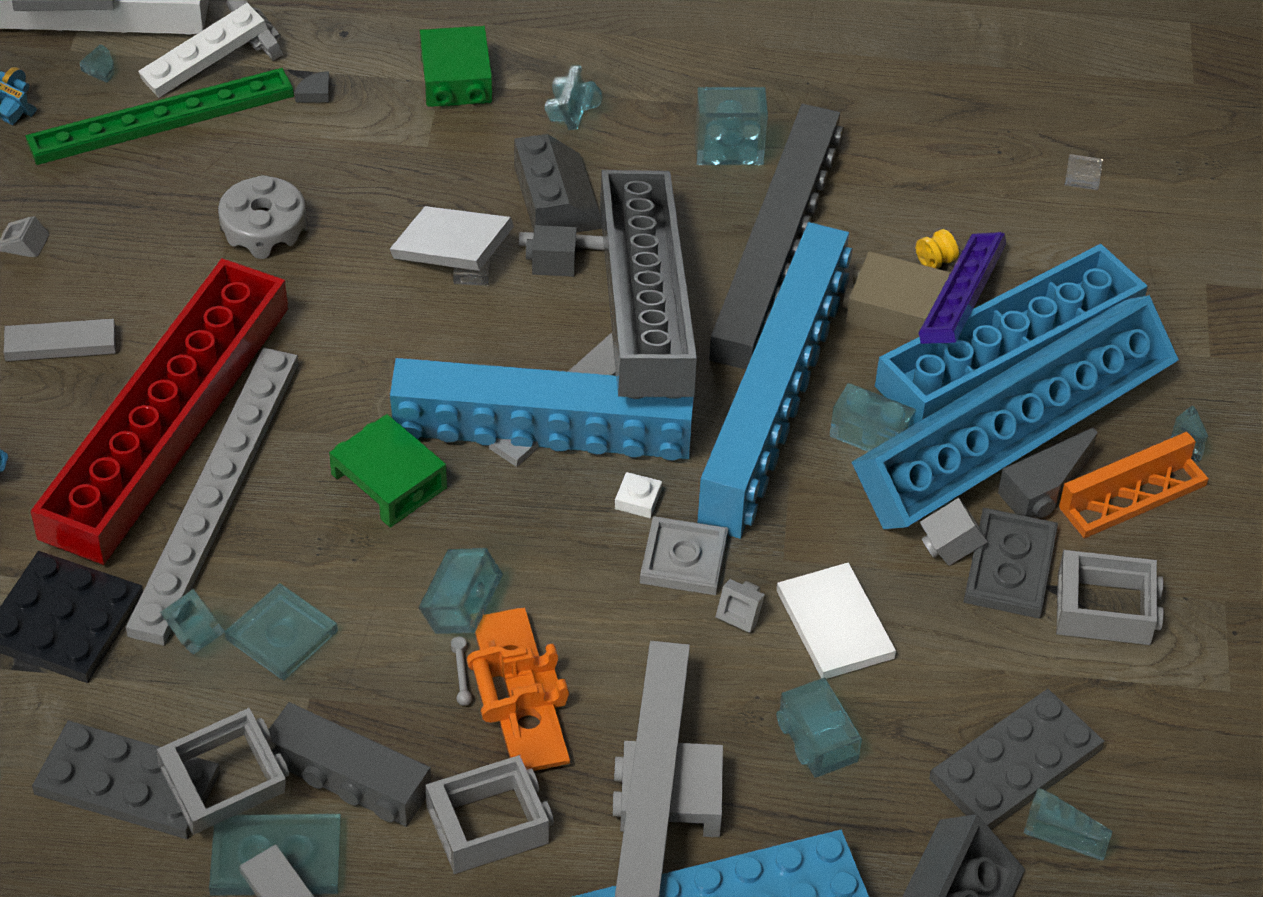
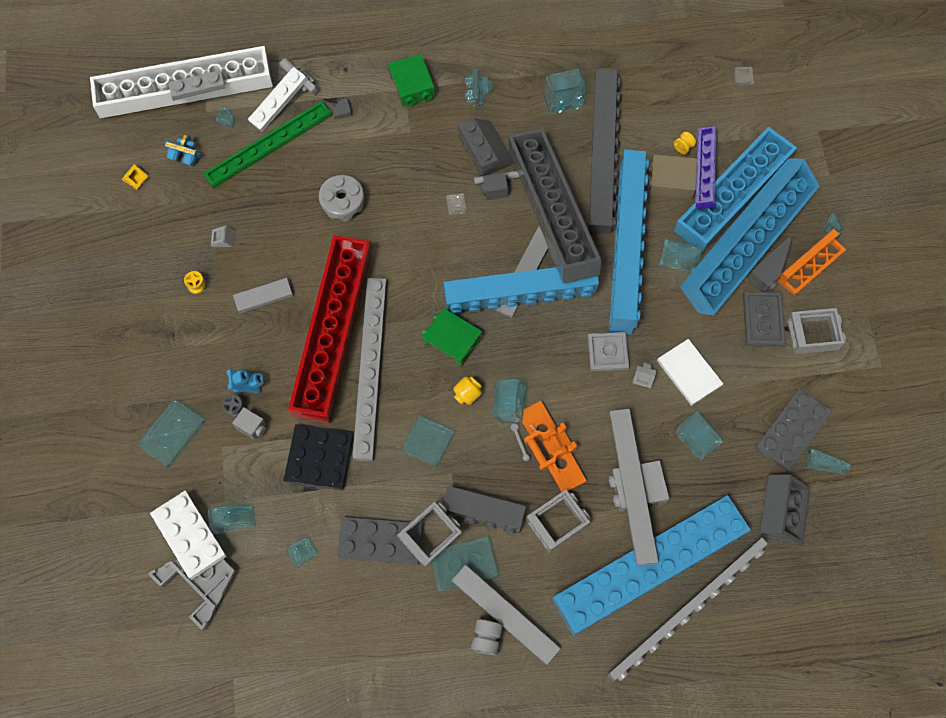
camera: 10 degrees left, 20 degrees up
(192, 621) = (386, 450): clear light blue brick -> none
(386, 560) = (467, 390): none -> yellow head
(452, 238) = (442, 191): tile -> none
(638, 495) = (576, 321): white plate -> none
(952, 532) = (734, 312): light grey brick -> none

